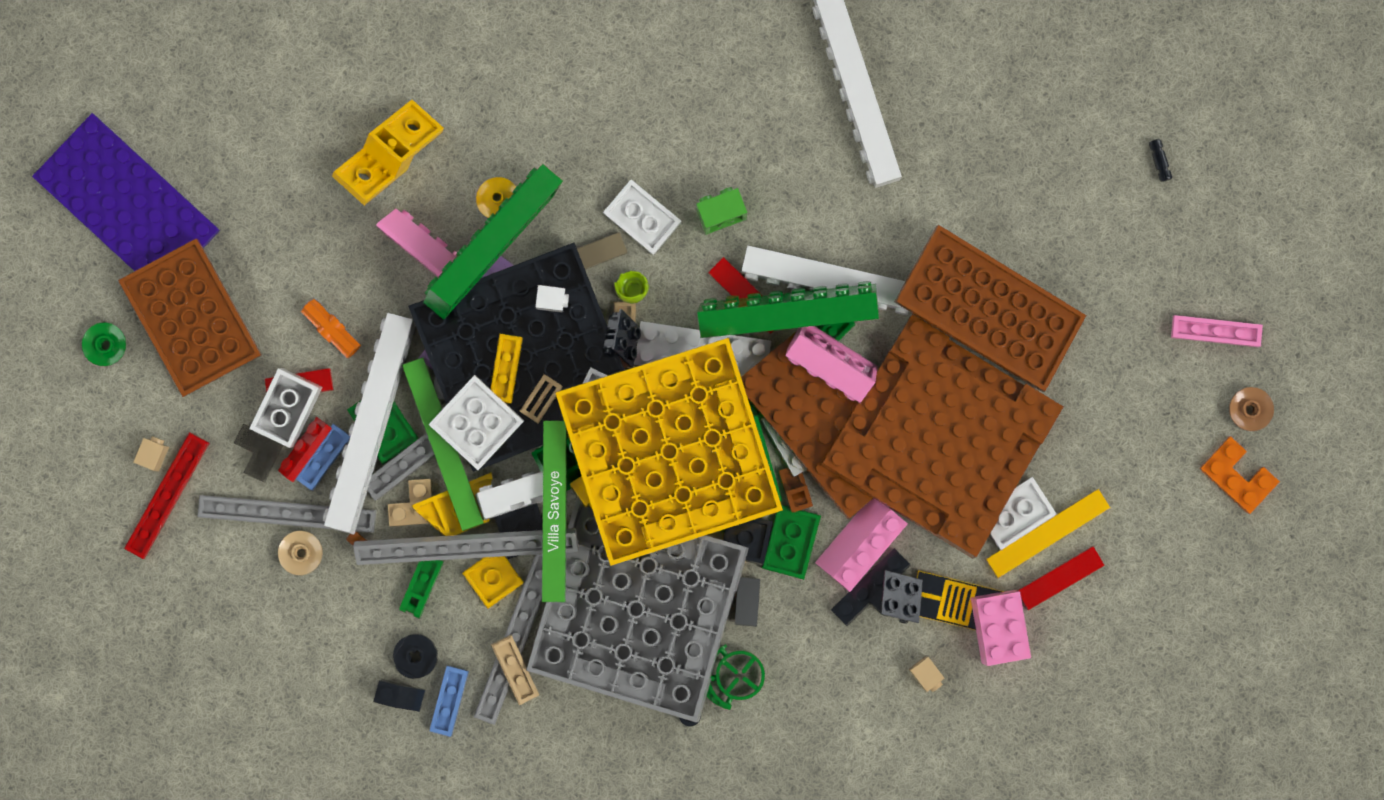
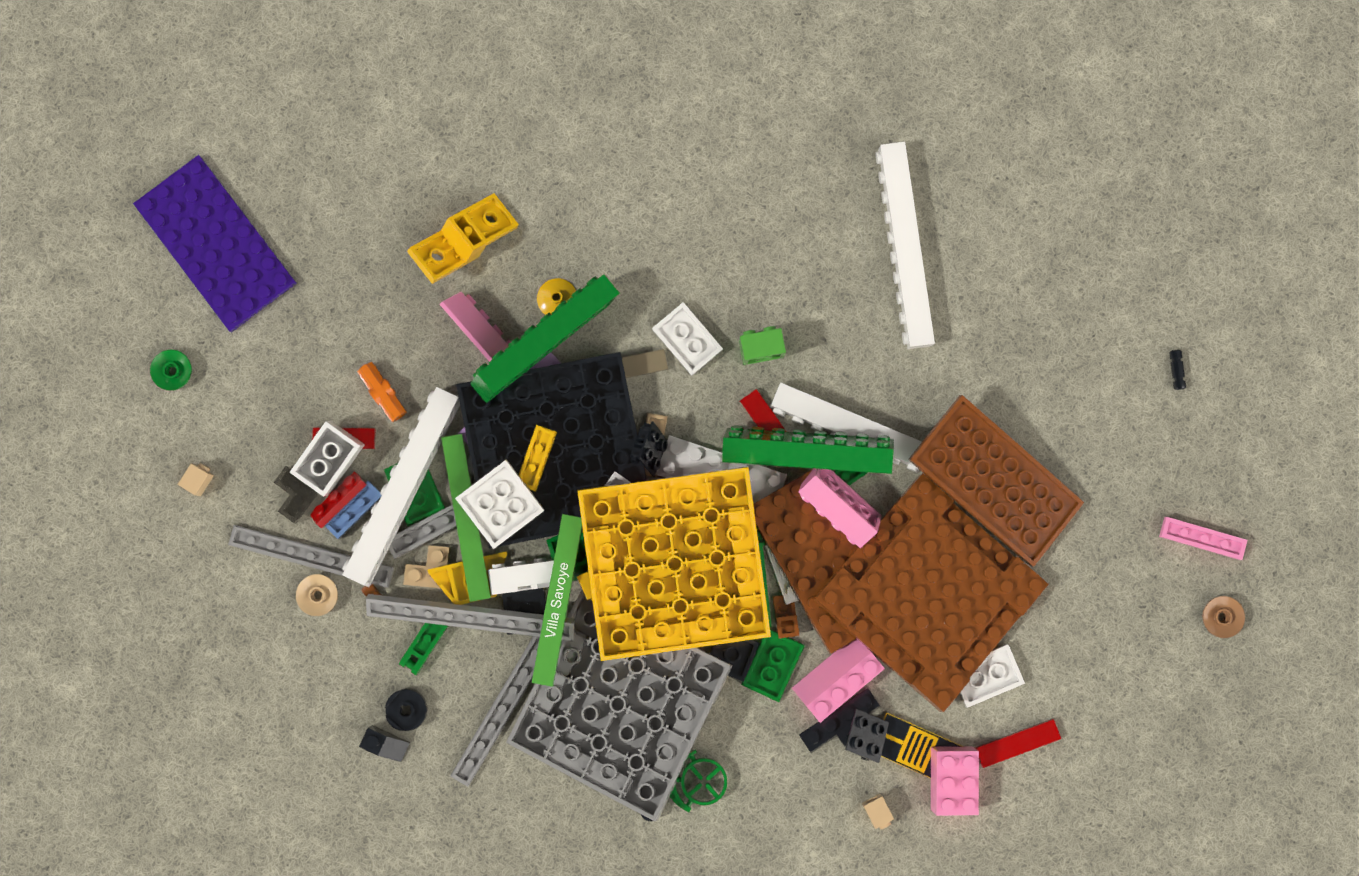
camera: 10 degrees right, 0 degrees up
(166, 495) = (203, 520): red tile -> none
(190, 317) = (254, 359): dark orange plate -> none
(449, 701) = (429, 757): medium blue plate -> none
(493, 579) = (490, 651): yellow tile -> none
(514, 669) = (495, 739): tan tile -> none
(551, 298) = (590, 401): white brick -> none
(551, 383) = (550, 494): tan tile -> none
(637, 289) = (666, 402): lime hair -> none
(747, 602) = (722, 714): dark grey slope -> none
(1048, 533) = (1013, 699): yellow tile -> none
(1220, 471) = (1204, 694): orange plate -> none

